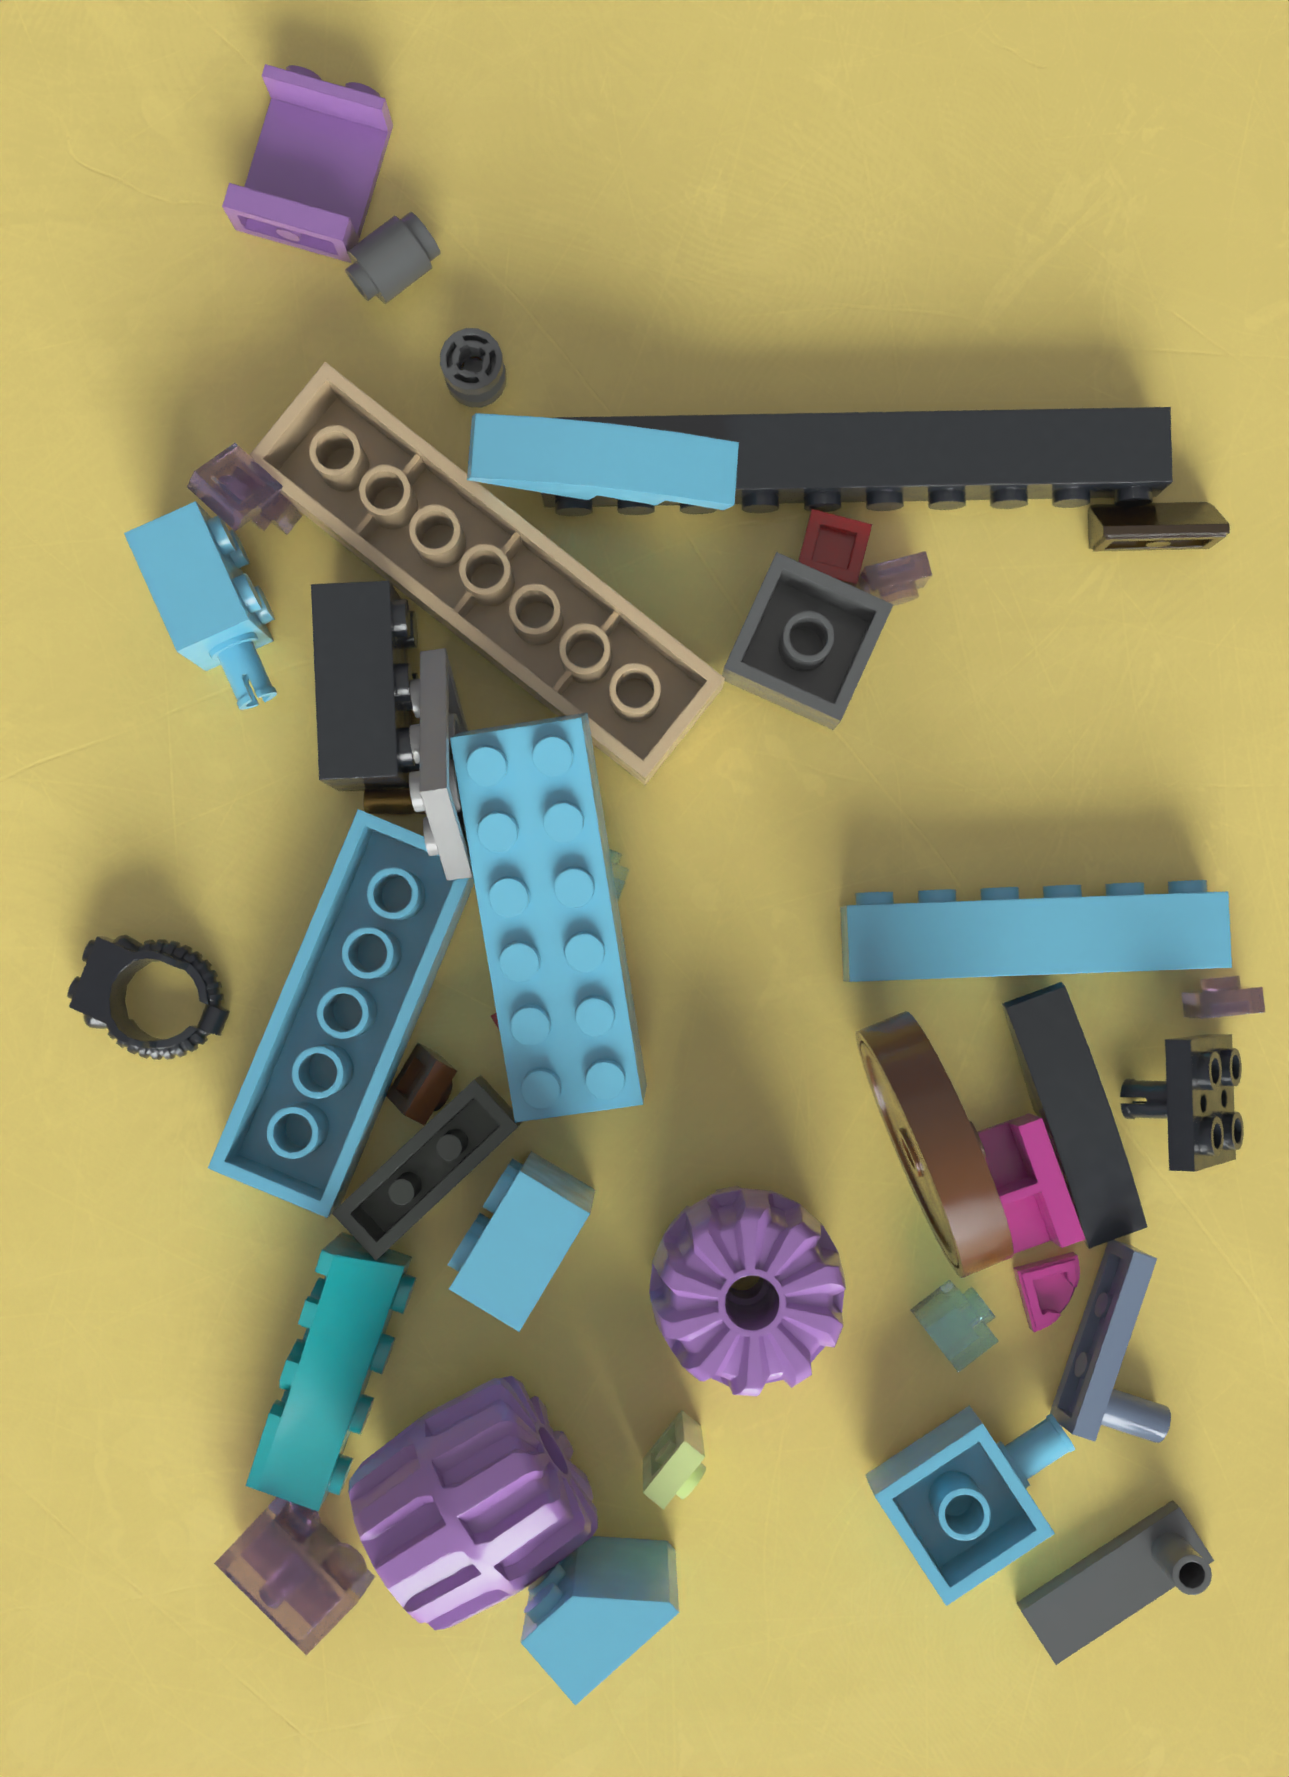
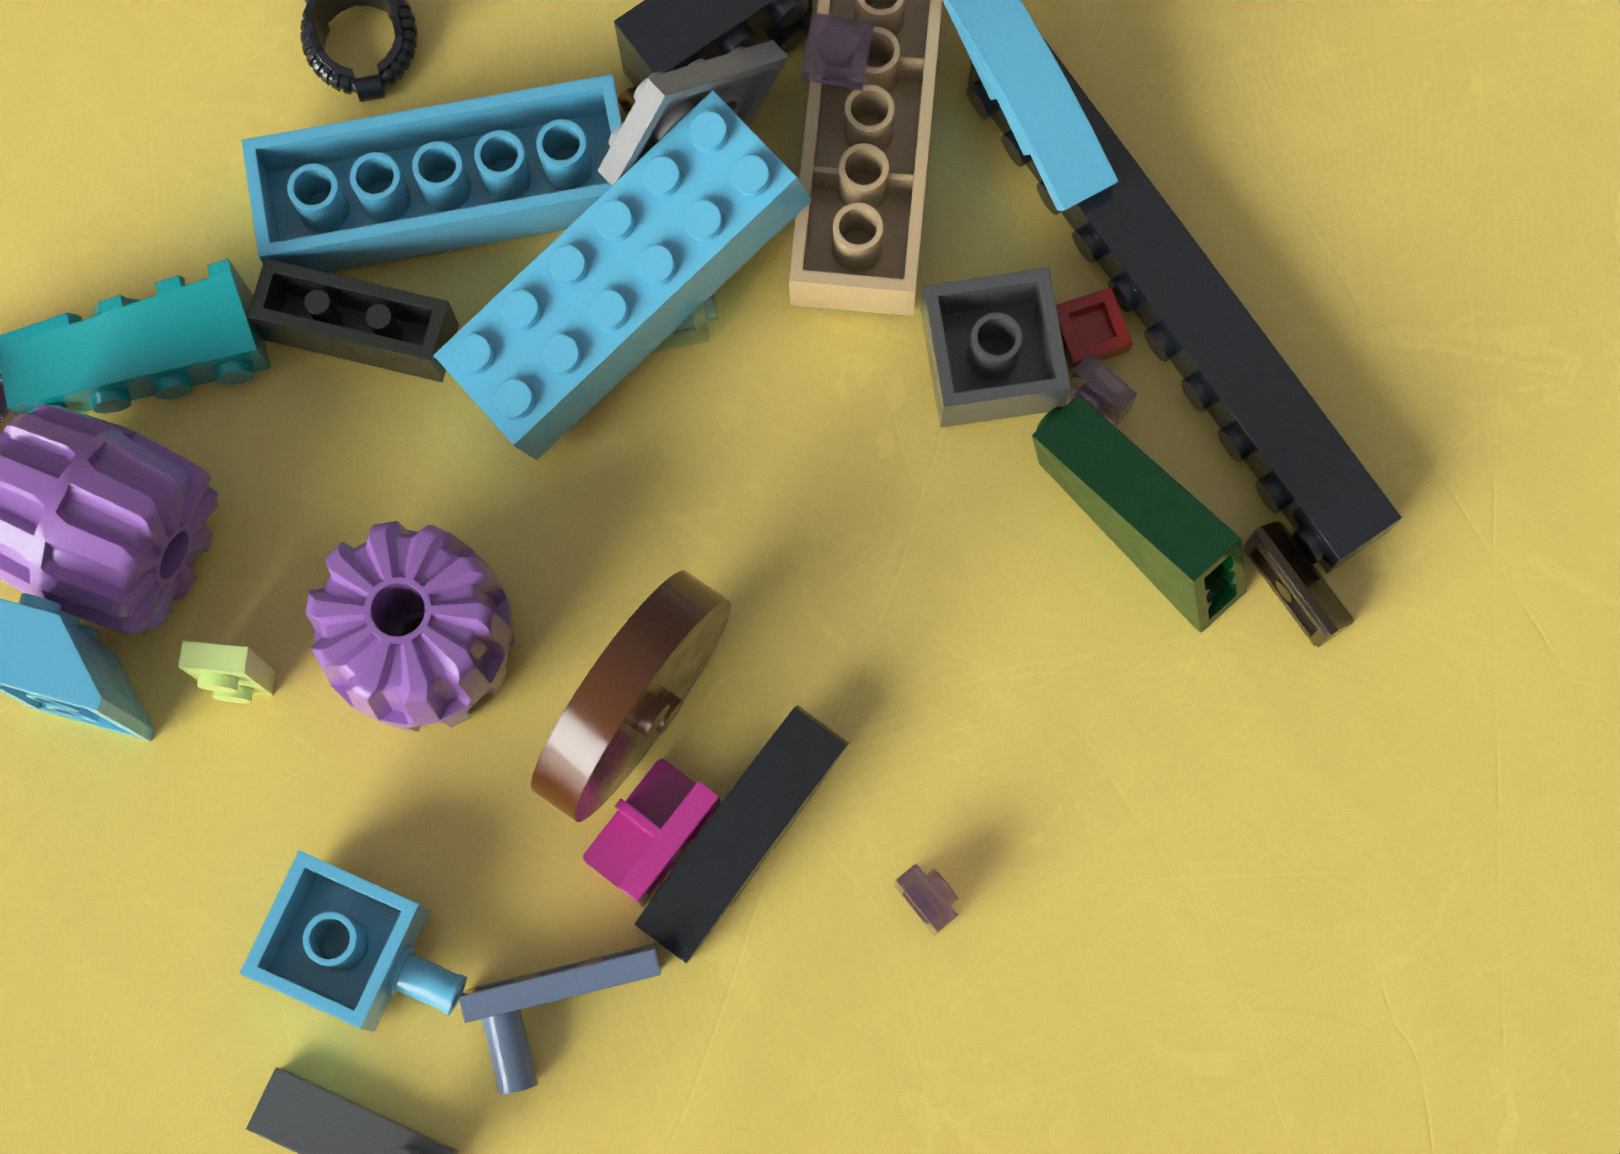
camera: 60 degrees right, 10 degrees down
(422, 1084) = (421, 276): reddish brown plate -> none
(468, 602) = (837, 51): none -> clear purple plate
(515, 1253) = (338, 416): medium azure brick -> none
(957, 1323) = (495, 846): clear light blue plate -> none
(1016, 613) = (1143, 511): none -> dark green slope
(1035, 935) = (876, 700): medium azure brick -> none
(1047, 1288) = (576, 914): dark pink tile -> none
(1194, 1101) = (822, 923): black plate -> none

